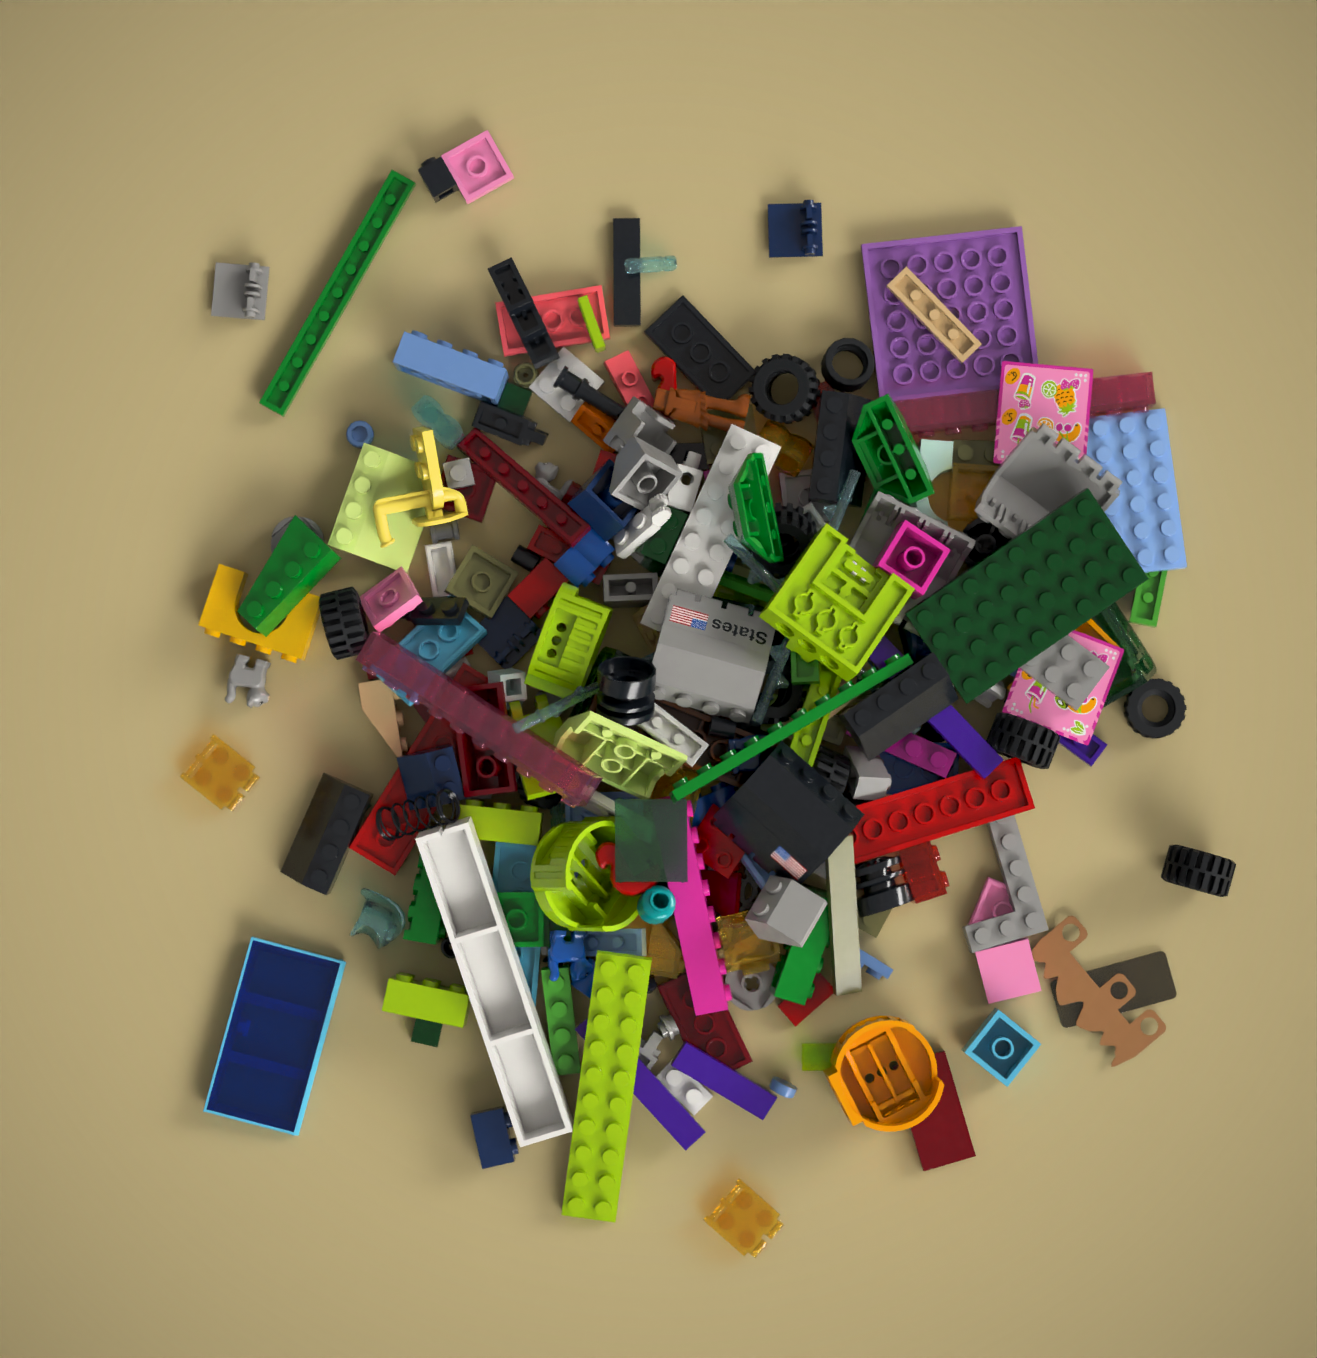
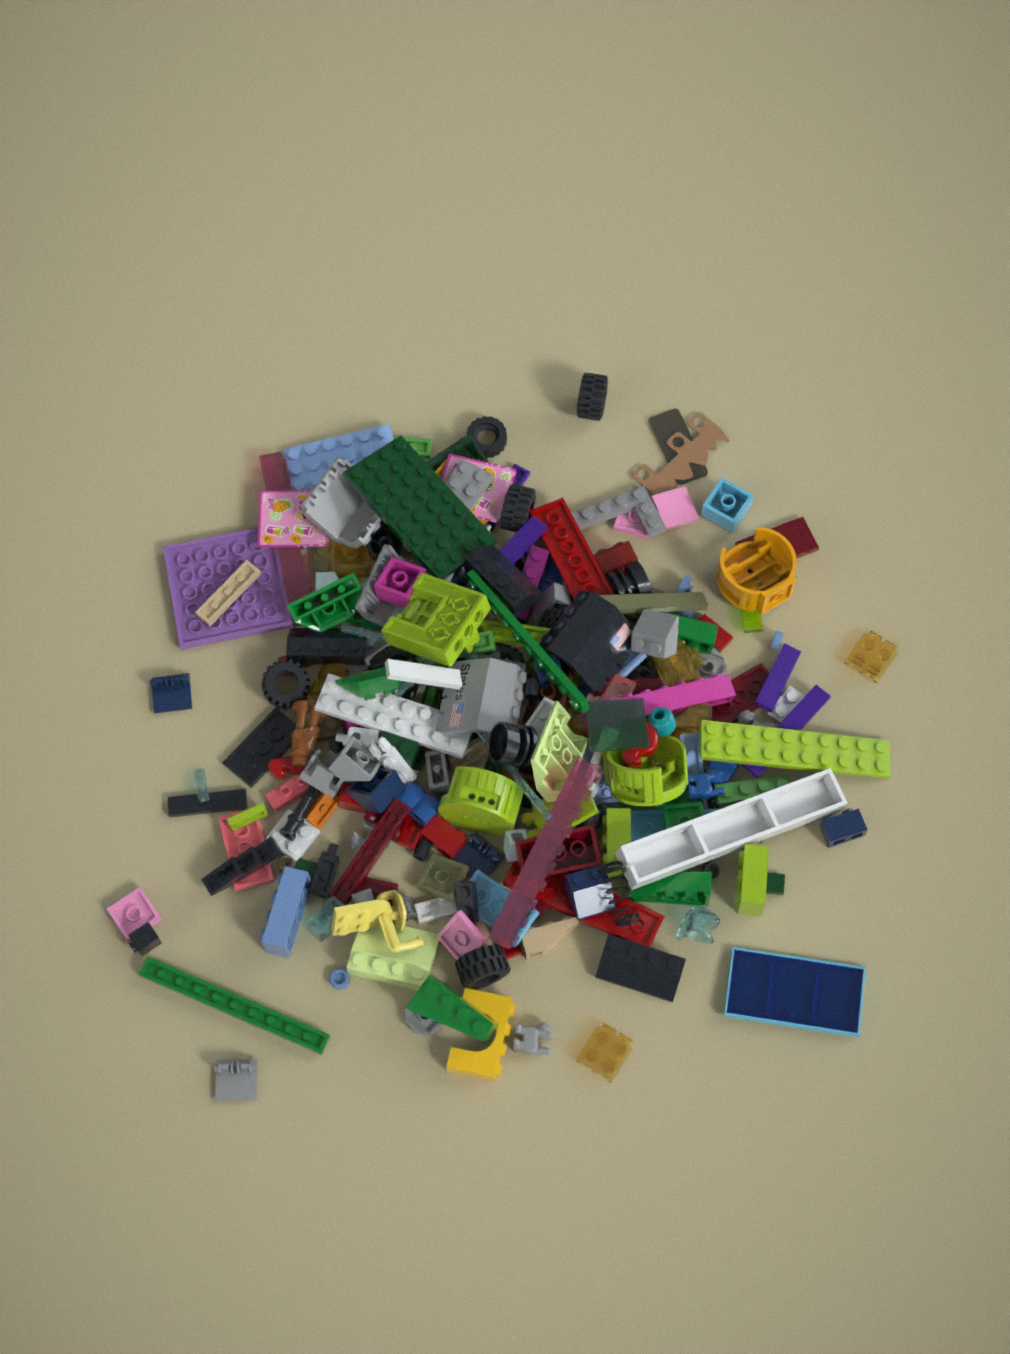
camera: 95 degrees left, 20 degrees down
(746, 576) = (423, 674): none -> white tile
(861, 351) = (260, 637): black tyre -> none

